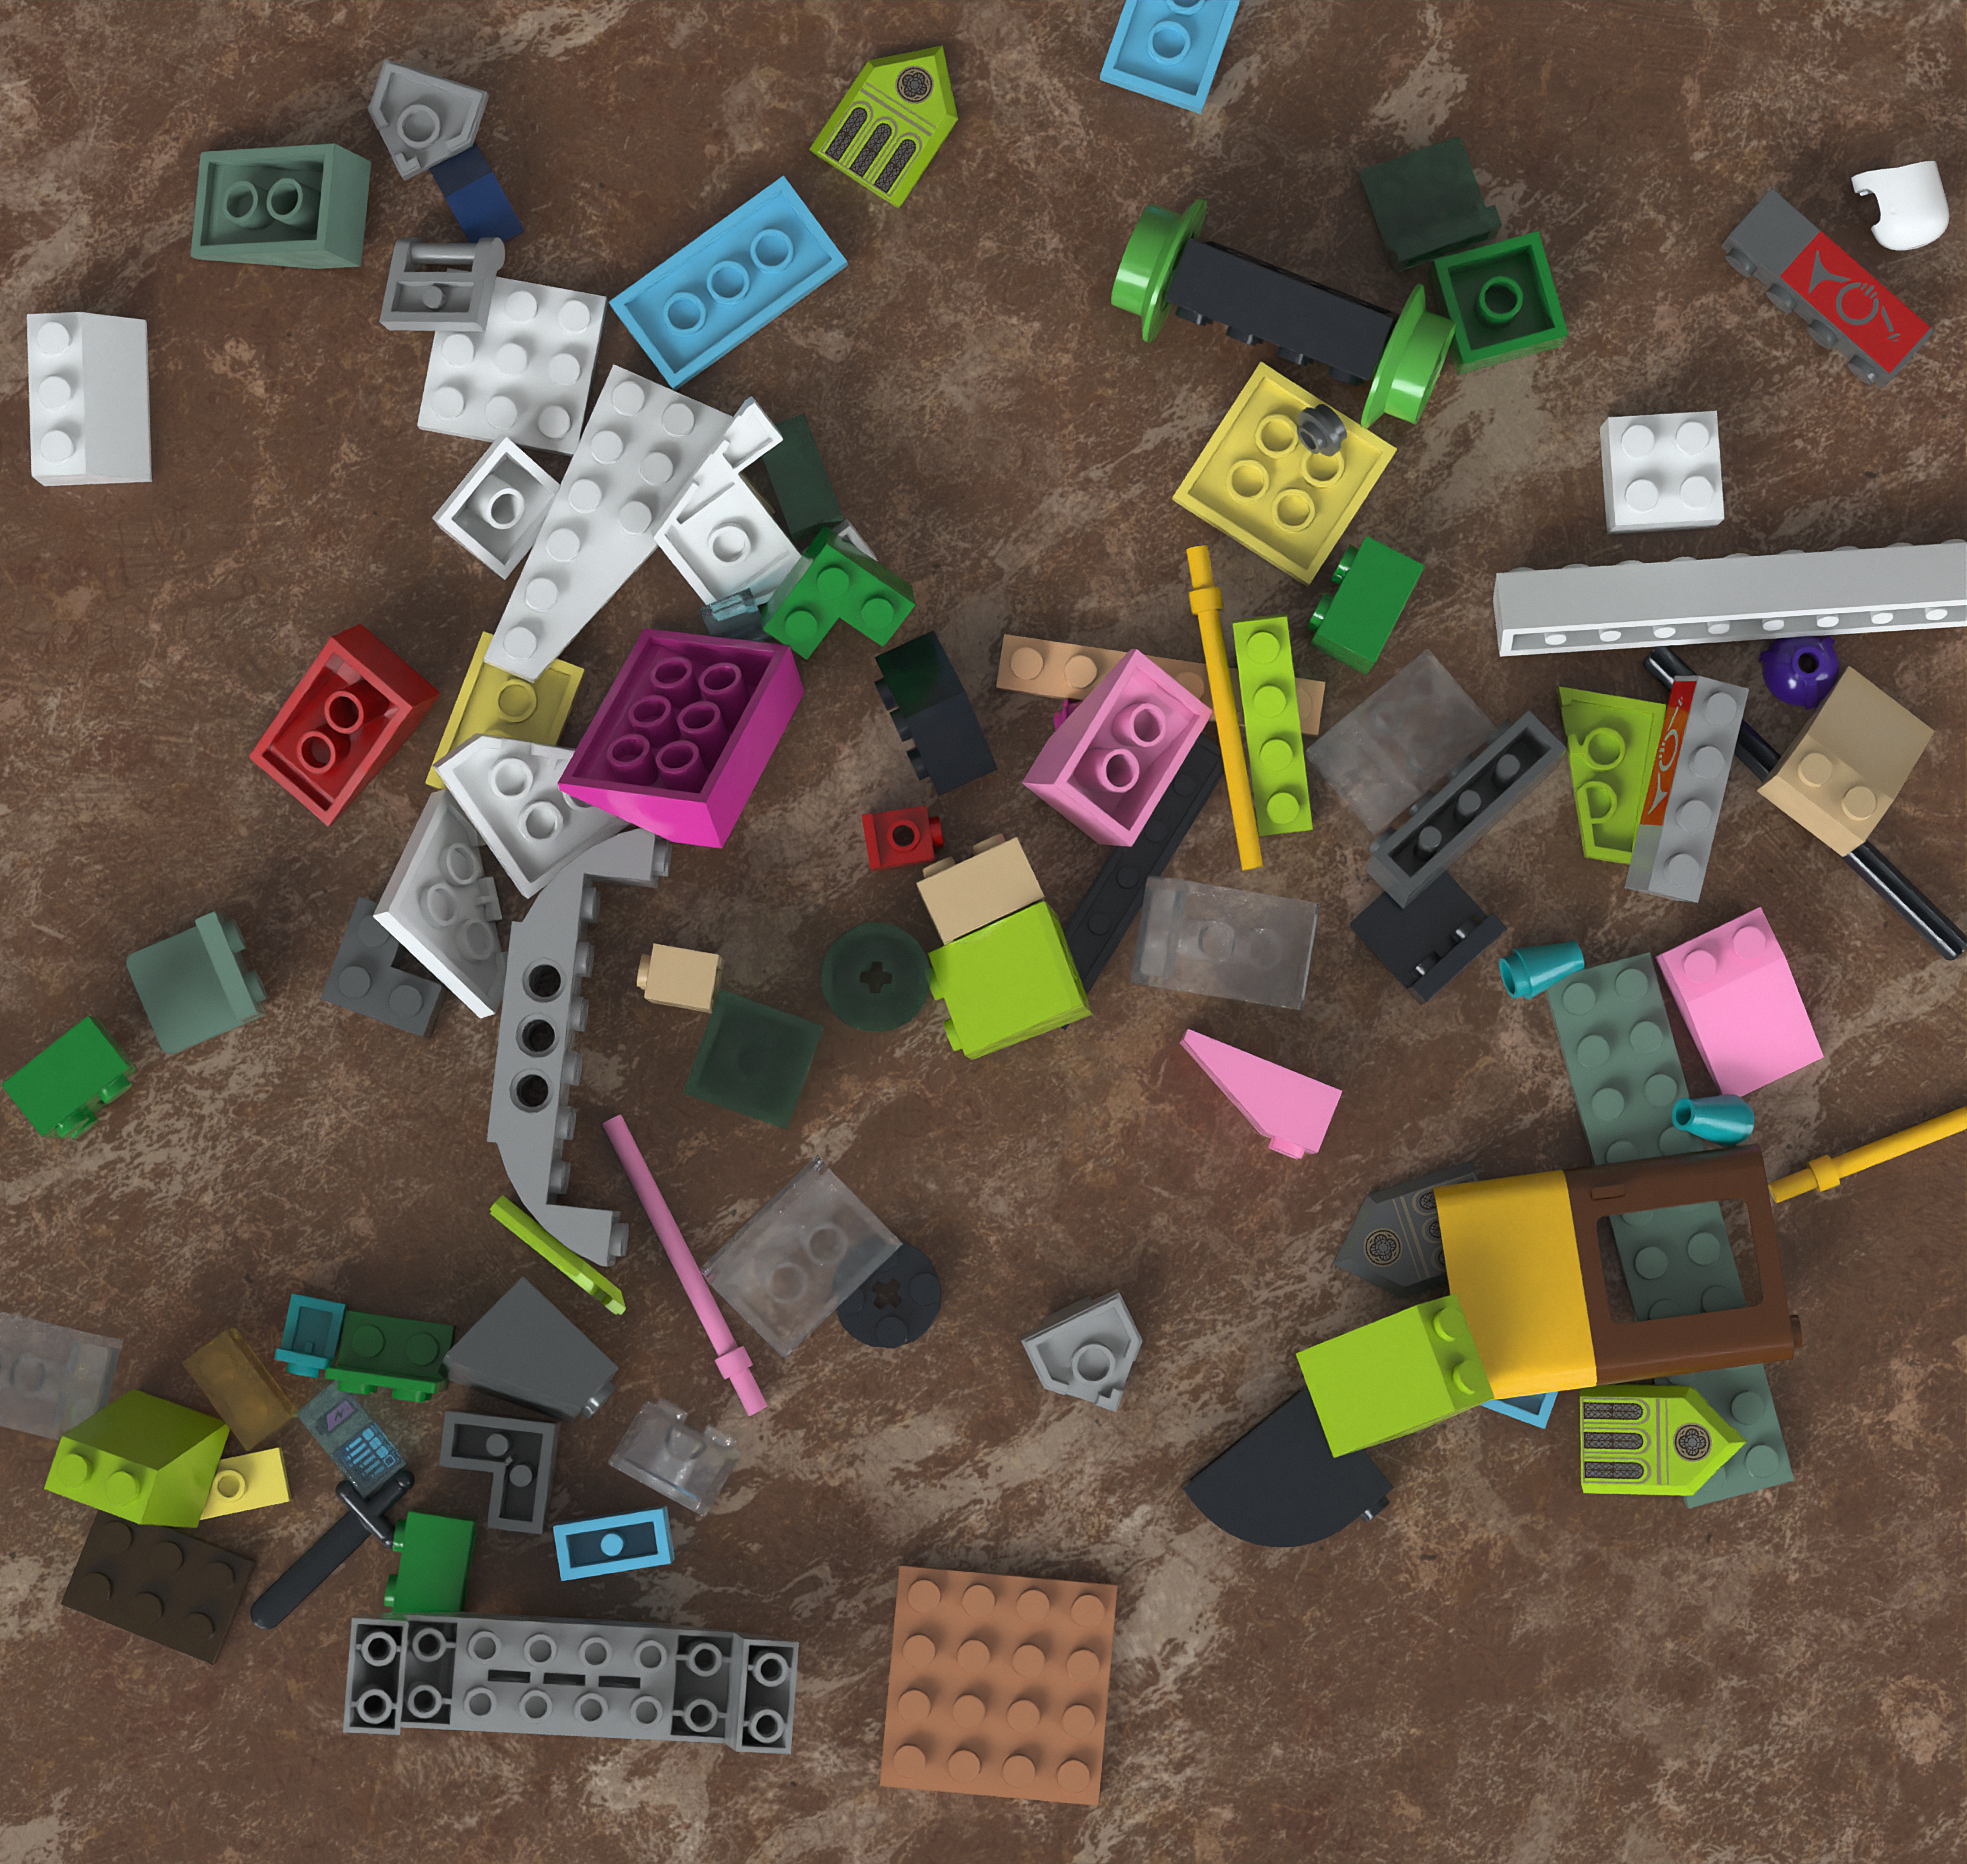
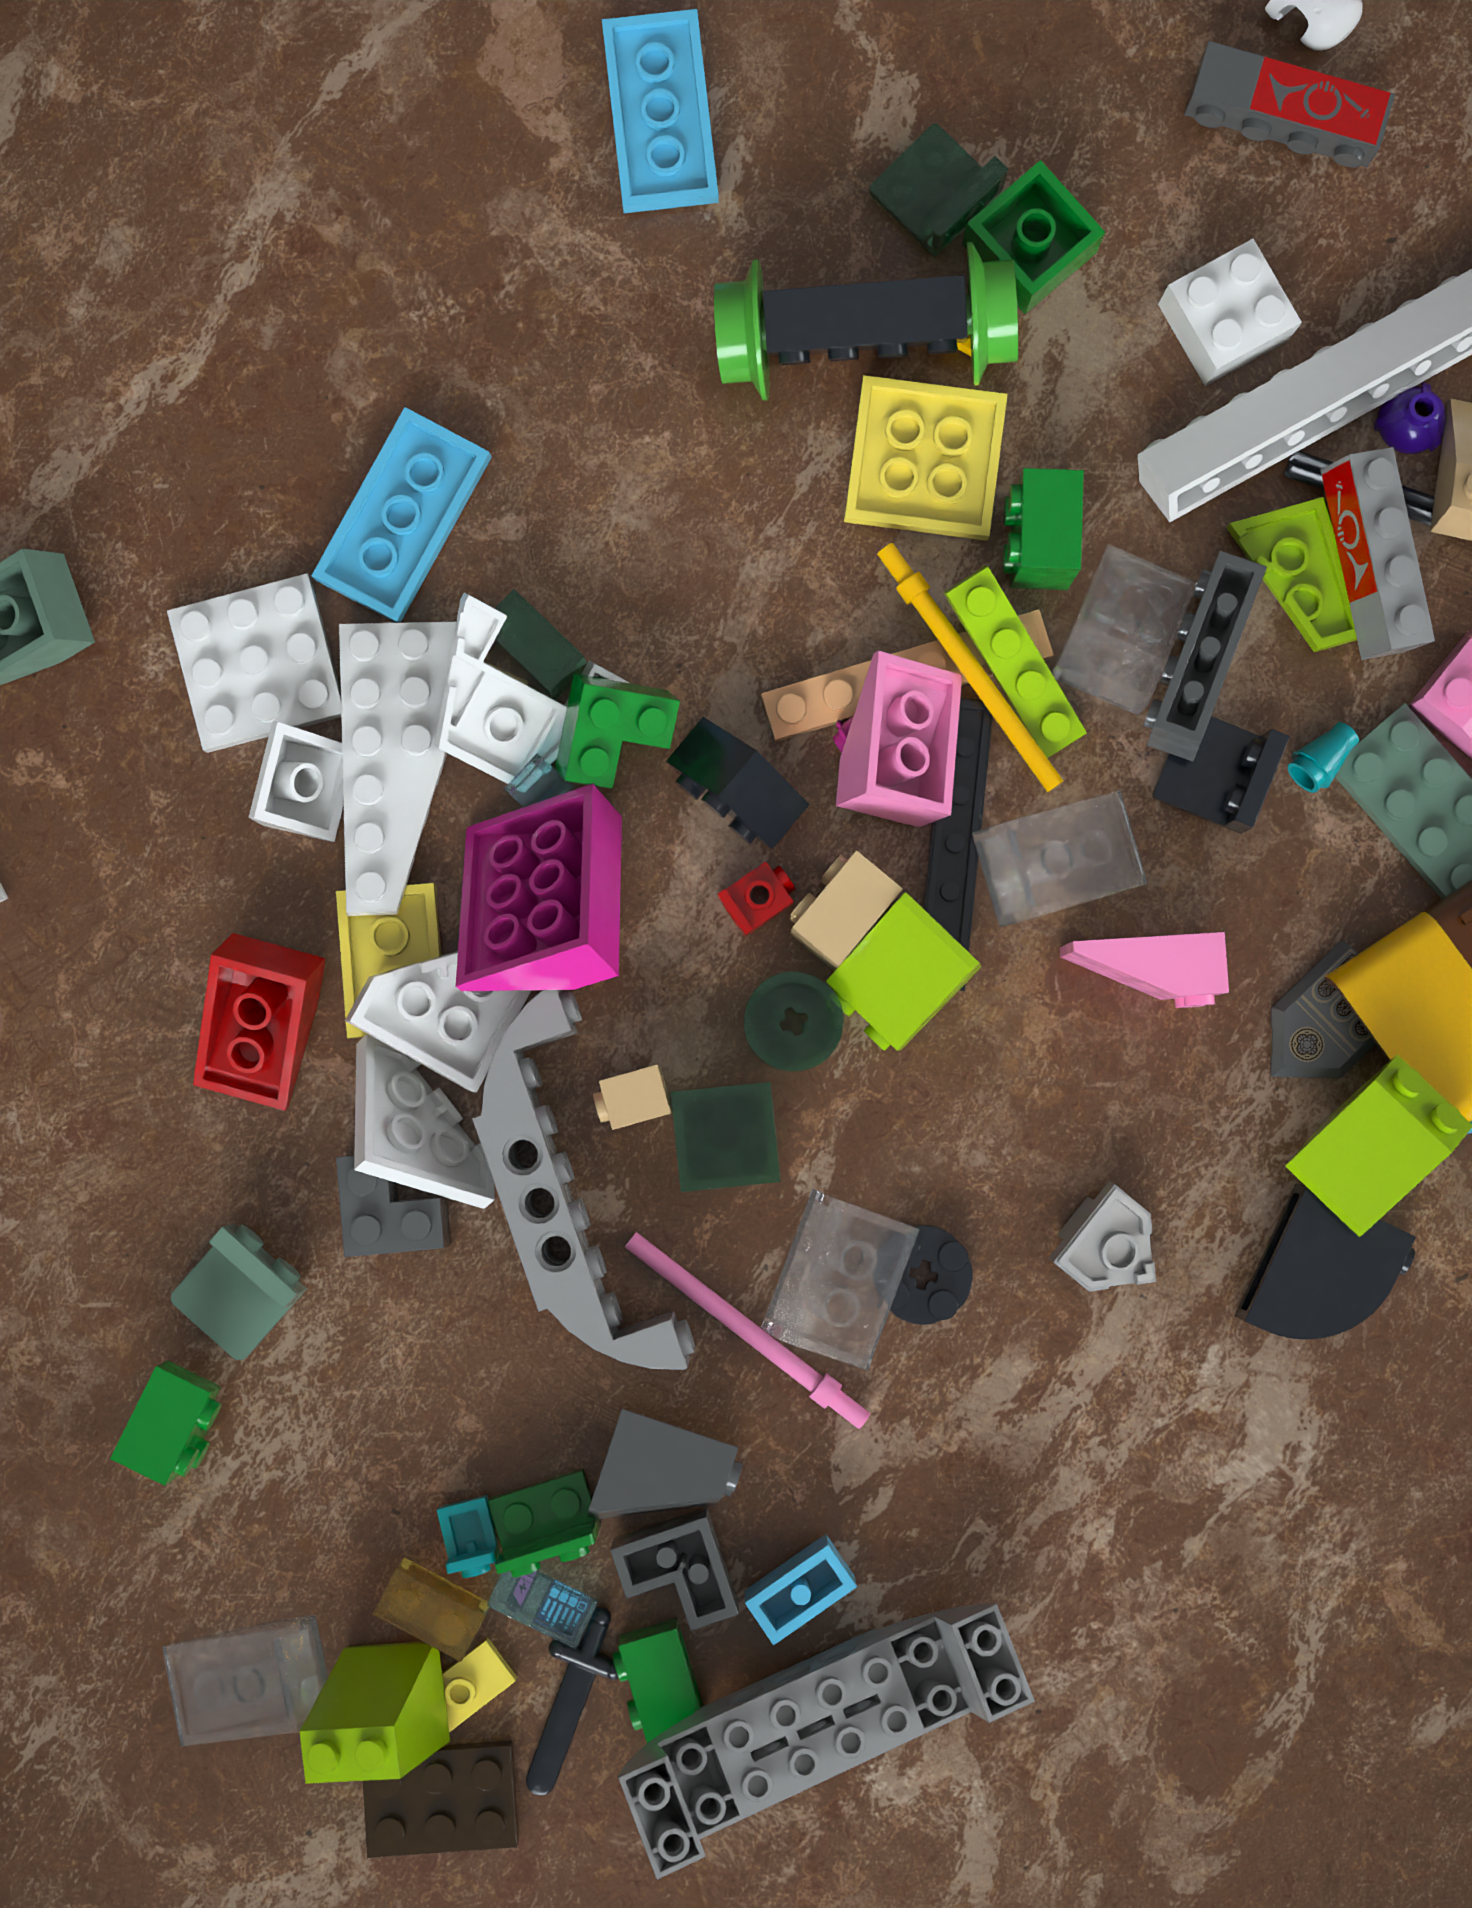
camera: 25 degrees left, 0 degrees up
(424, 116) = (89, 496): light grey plate -> none
(441, 298) = (172, 636): light grey plate -> none
(476, 197) = (163, 543): dark blue slope -> none
(558, 1254) = (662, 1380): lime tile -> none
(677, 1456) = (818, 1494): clear slope -> none
(891, 123) = (472, 326): lime tile -> none
(998, 1684) = (1167, 1550): nougat plate -> none
(1321, 430) = (940, 404): dark grey plate -> none

